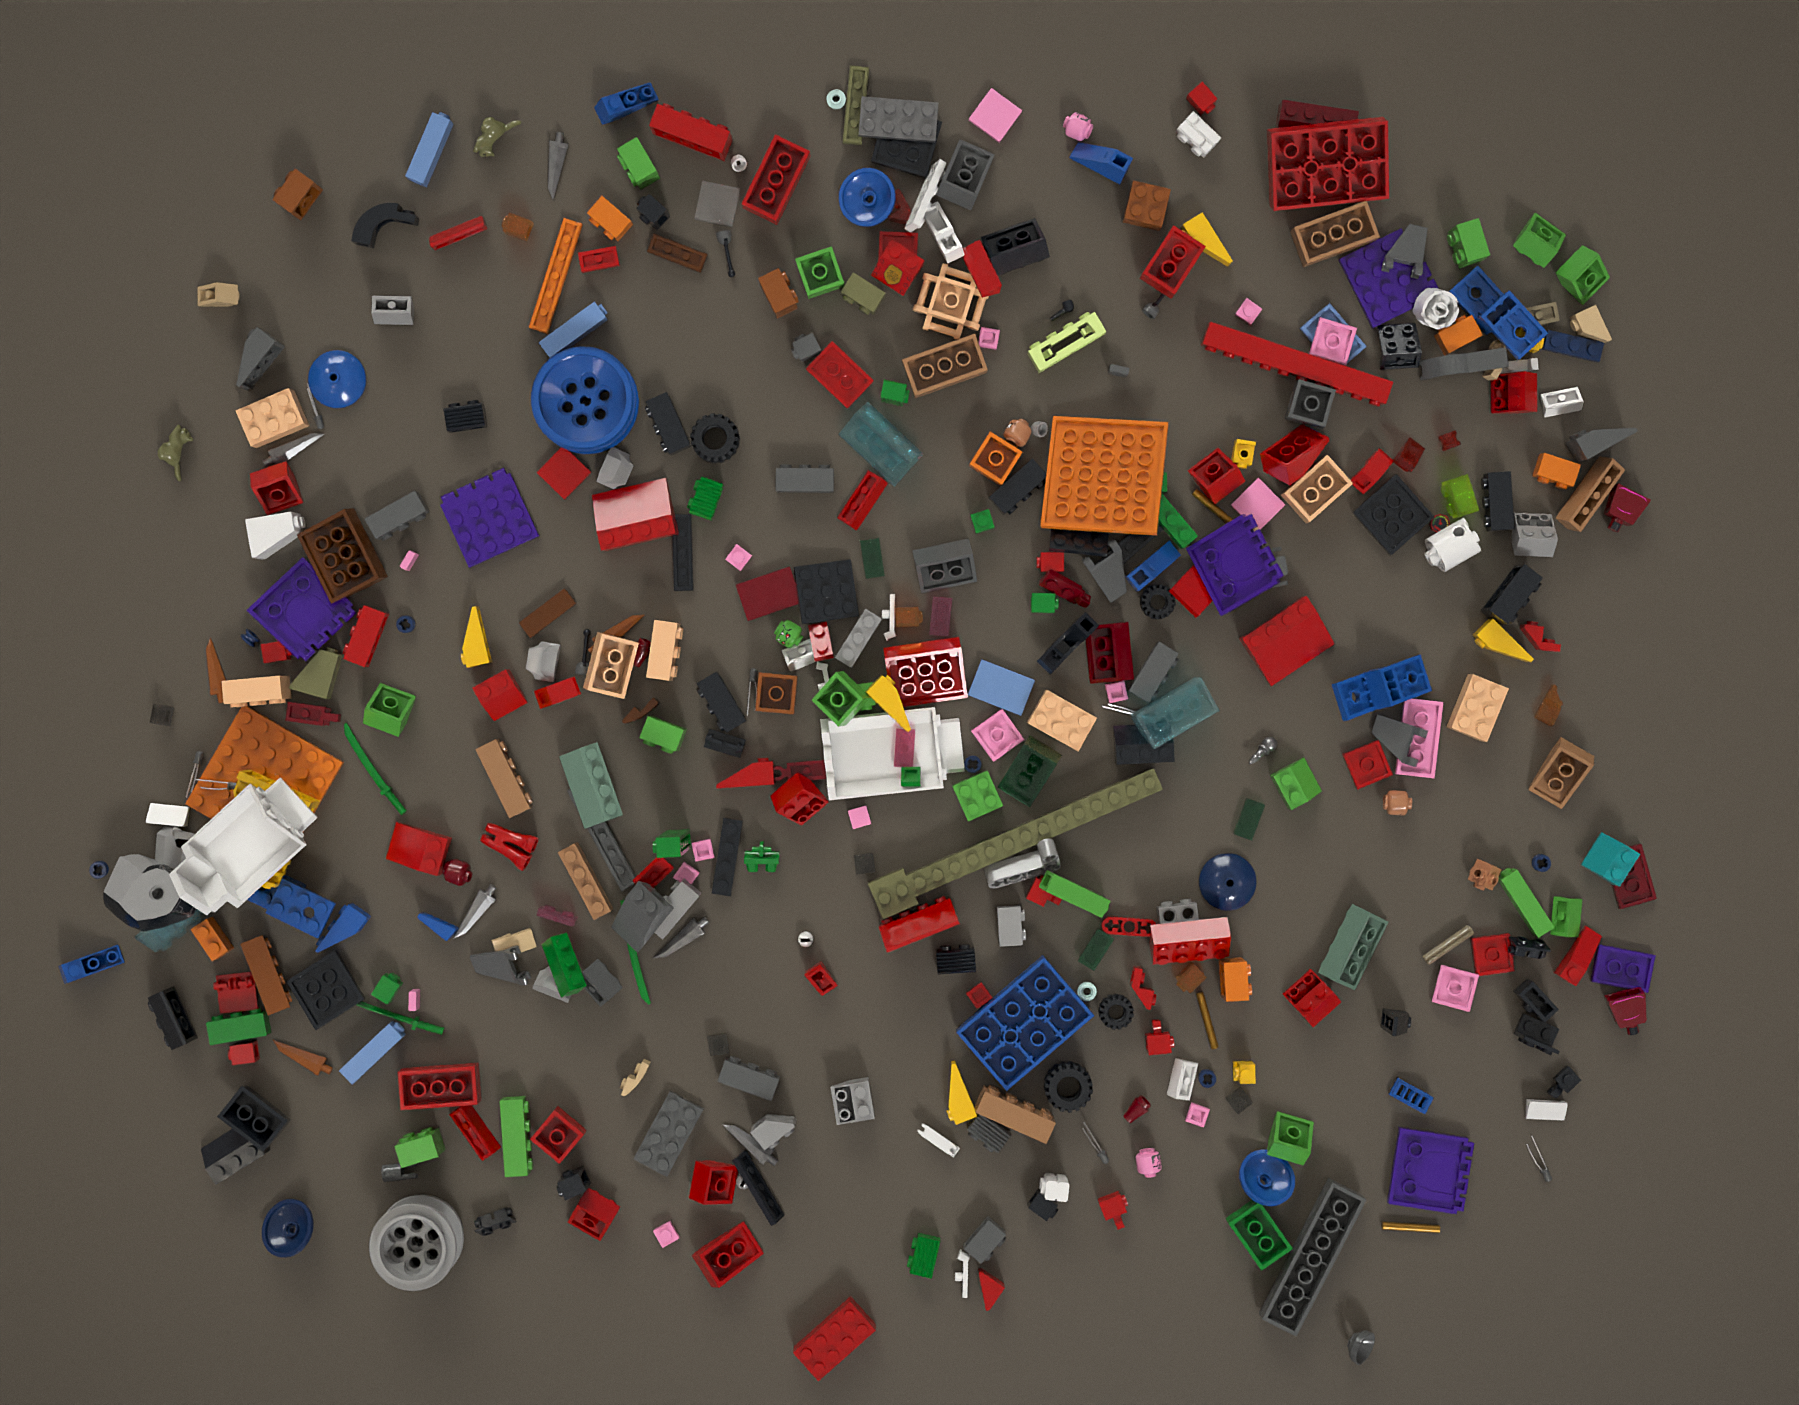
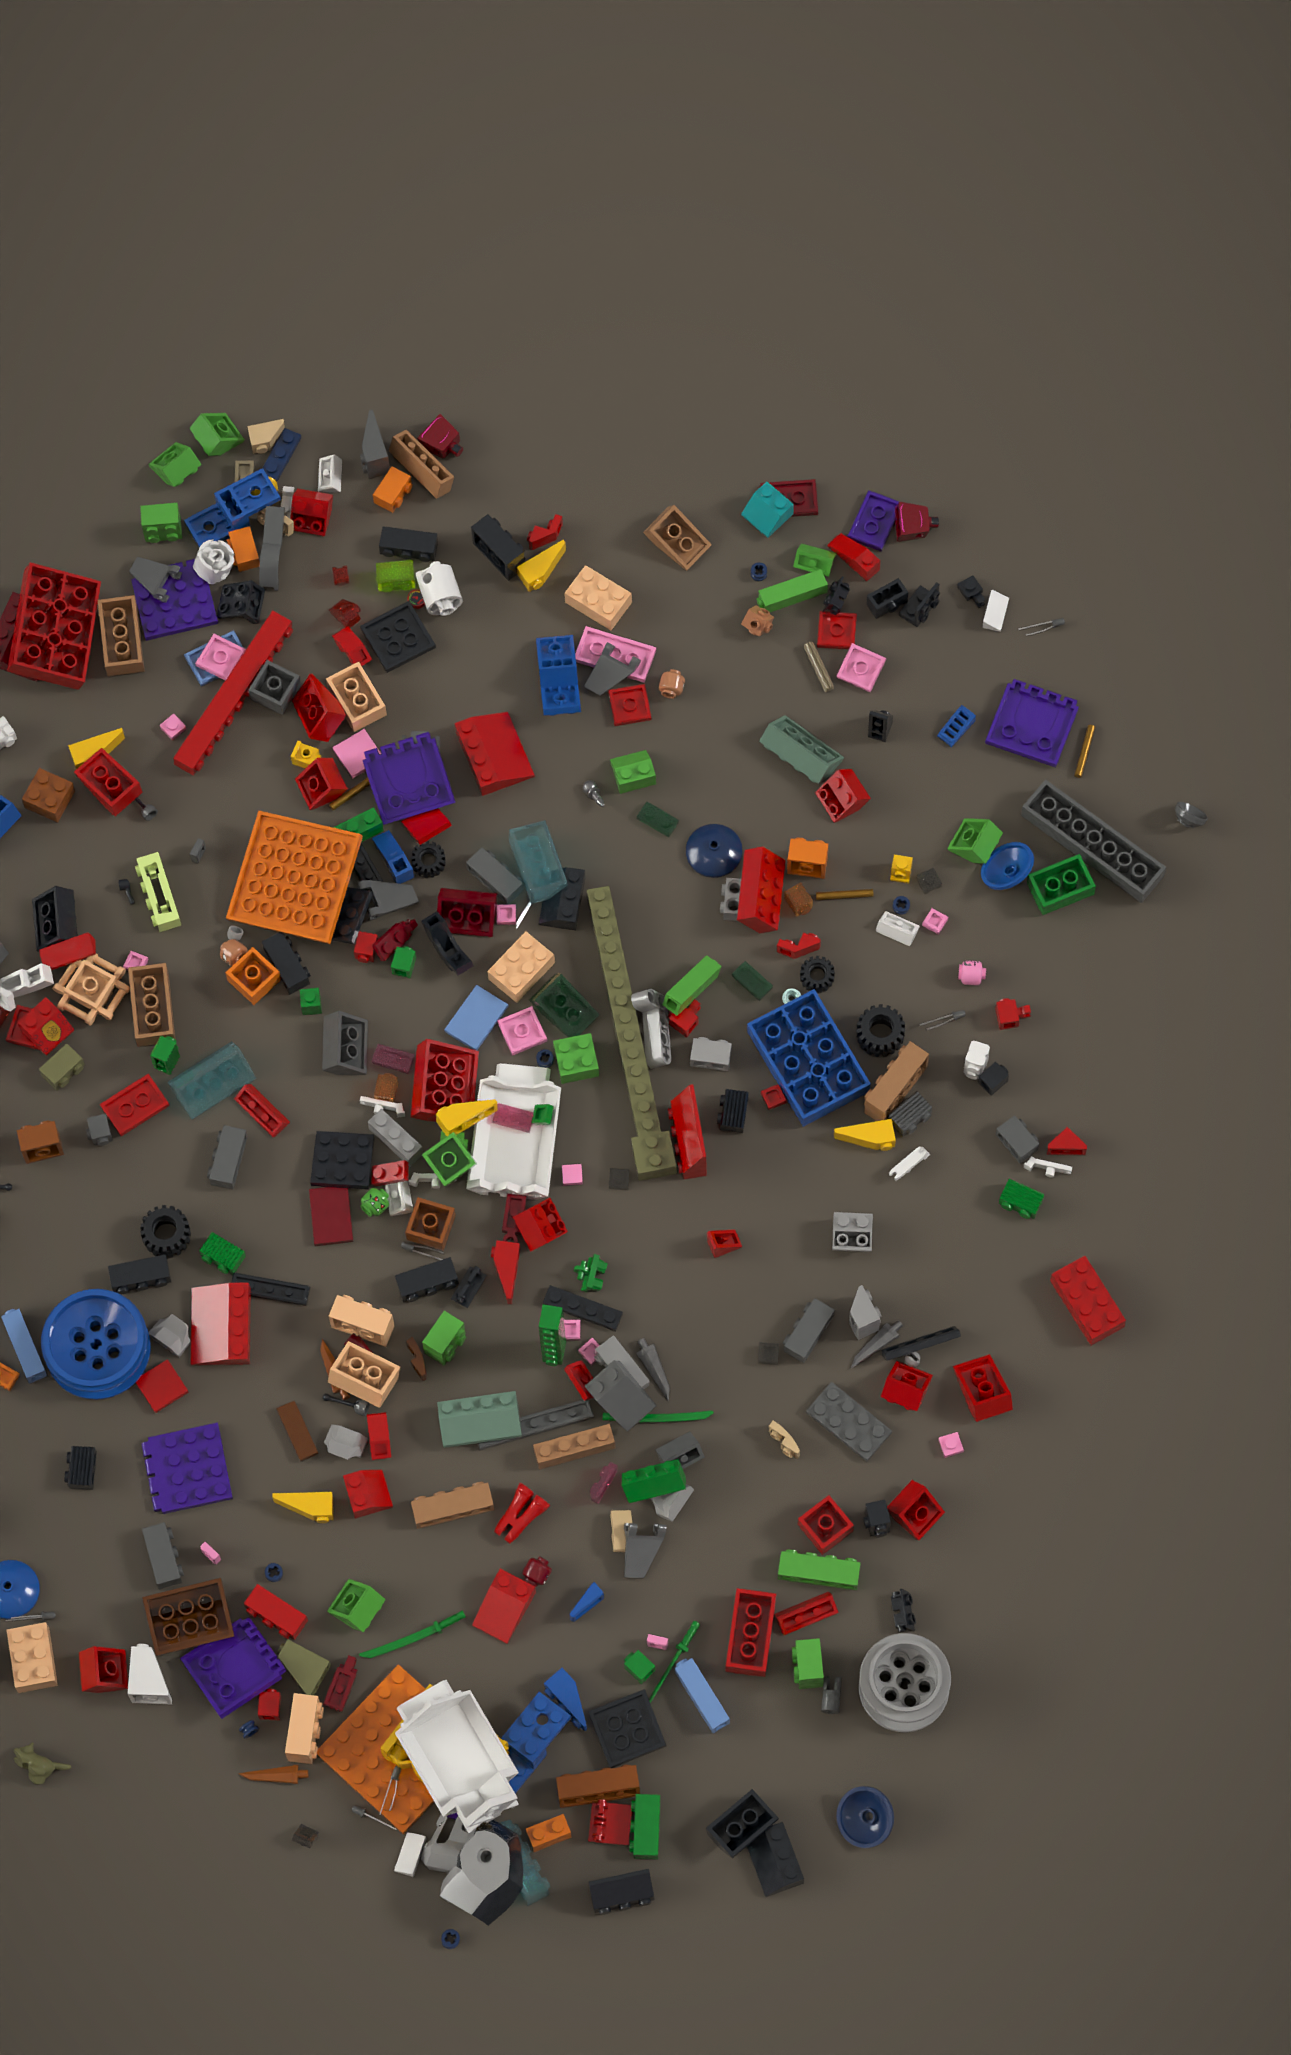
camera: 80 degrees left, 20 degrees down
(91, 964) = (547, 1968): blue slope -> none
(244, 1052) = (674, 1827): red brick -> none
(290, 449) = (68, 1652): flat silver bar -> none
(308, 1060) = (698, 1763): dark orange bar -> none
(479, 906) = (578, 1561): flat silver bar -> none
(738, 557) = (288, 1236): bright pink plate -> none
(805, 935) = (686, 1251): white hinge -> none
(820, 272) = (30, 1100): bright green brick -> none
(872, 558) = (320, 1112): clear green plate -> none
(1114, 930) = (737, 954): red beam -> none
(1137, 1108) = (917, 974): dark red cone -> none
(1158, 1041) = (854, 941): red brick -> none
(1534, 535) = (448, 519): light grey slope -> none
(1550, 707) = (613, 537): clear orange slope -> none

